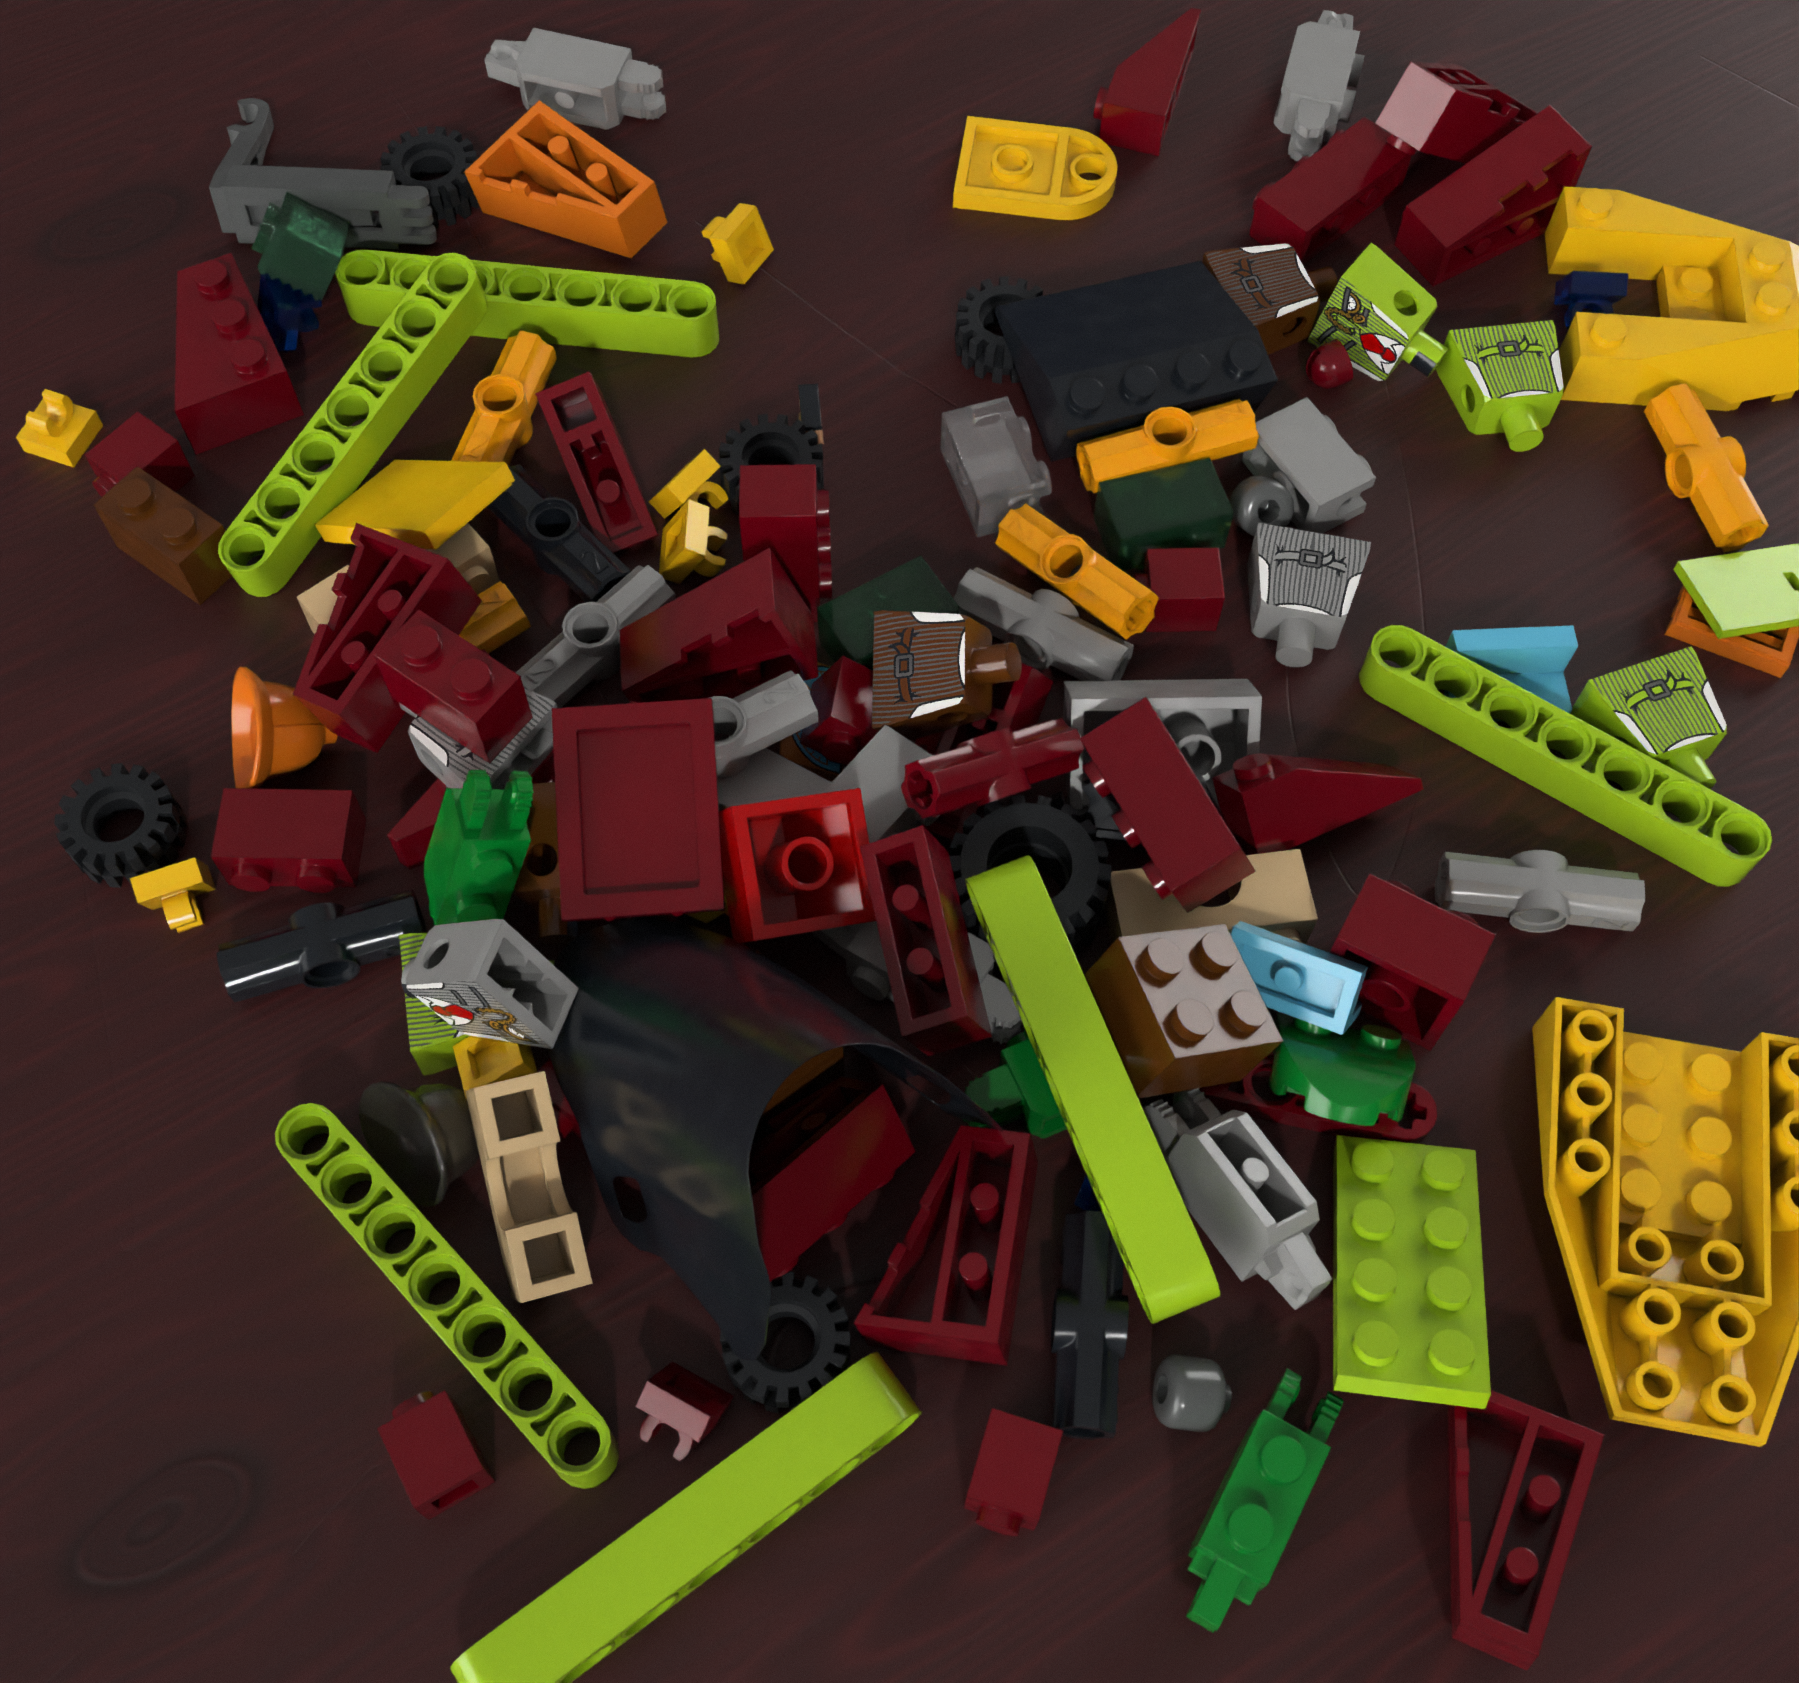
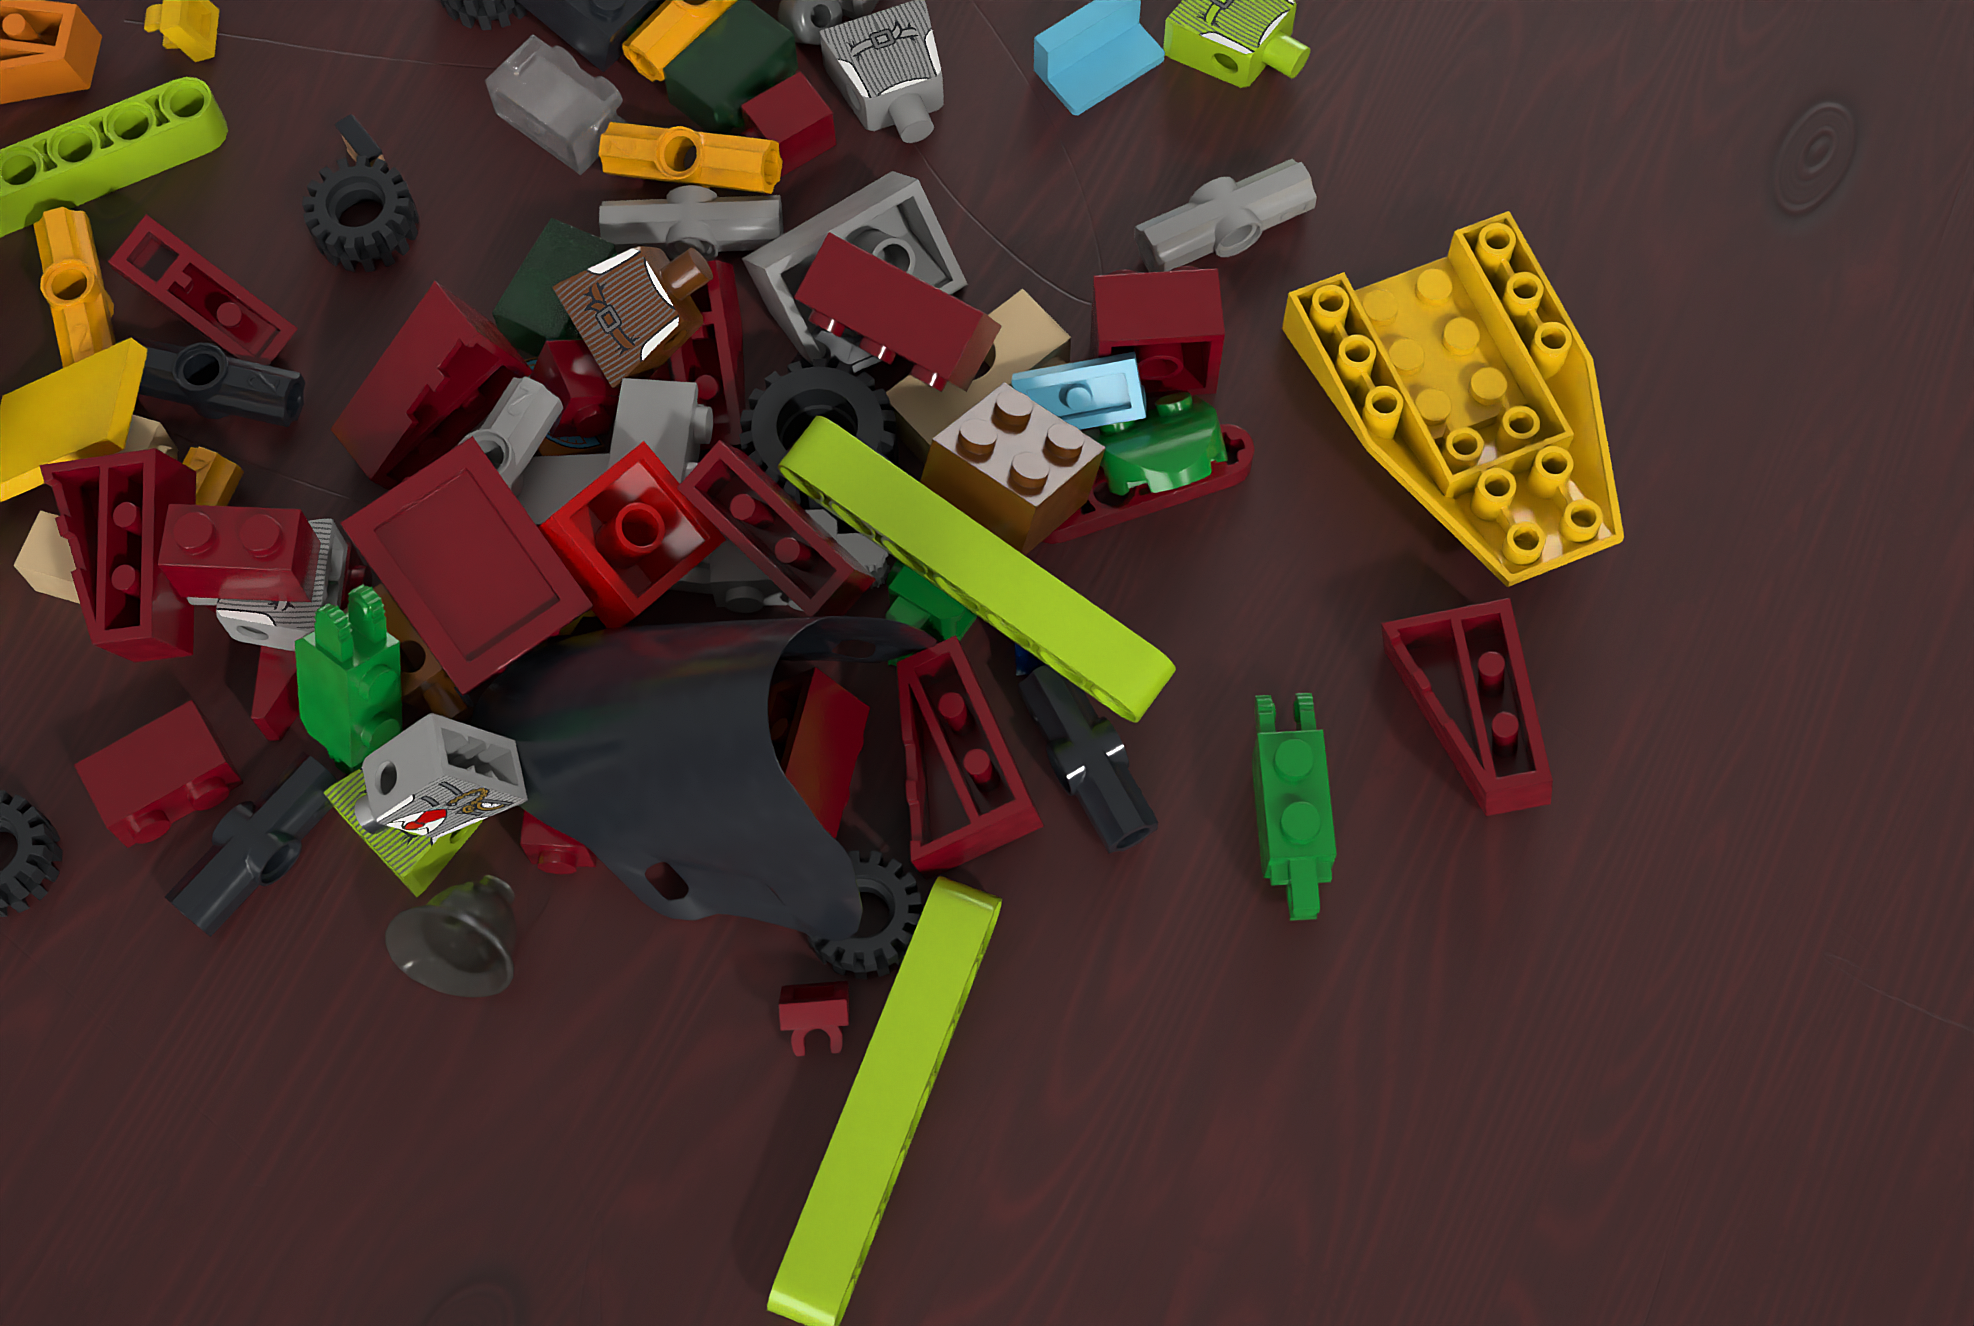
camera: 30 degrees left, 5 degrees up
(175, 891) = (89, 876): yellow tile -> none
(271, 731) = (73, 694): orange hat -> none
(434, 1453) = (642, 1166): dark red brick -> none
(465, 1316) = (534, 1028): lime beam -> none
(491, 1061) = (483, 849): yellow tile -> none
(524, 1186) = (608, 953): tan arch -> none
(570, 661) = (318, 402): light grey piece -> none
(686, 544) = (332, 321): yellow tile -> none
(690, 484) = (295, 271): yellow tile -> none
(792, 517) = (421, 245): dark red wedge -> none
(991, 767) = (736, 363): dark red piece -> none
(1012, 1473) = (1099, 898): dark red brick -> none
(1190, 1393) = (1193, 760): dark grey piece -> none
(1241, 1193) = (1145, 585): light grey hinge -> none
(1291, 799) = (995, 248): dark red slope -> none
(1408, 1273) = (1300, 568): lime plate -> none
(1590, 754) = (1201, 80): lime beam -> none

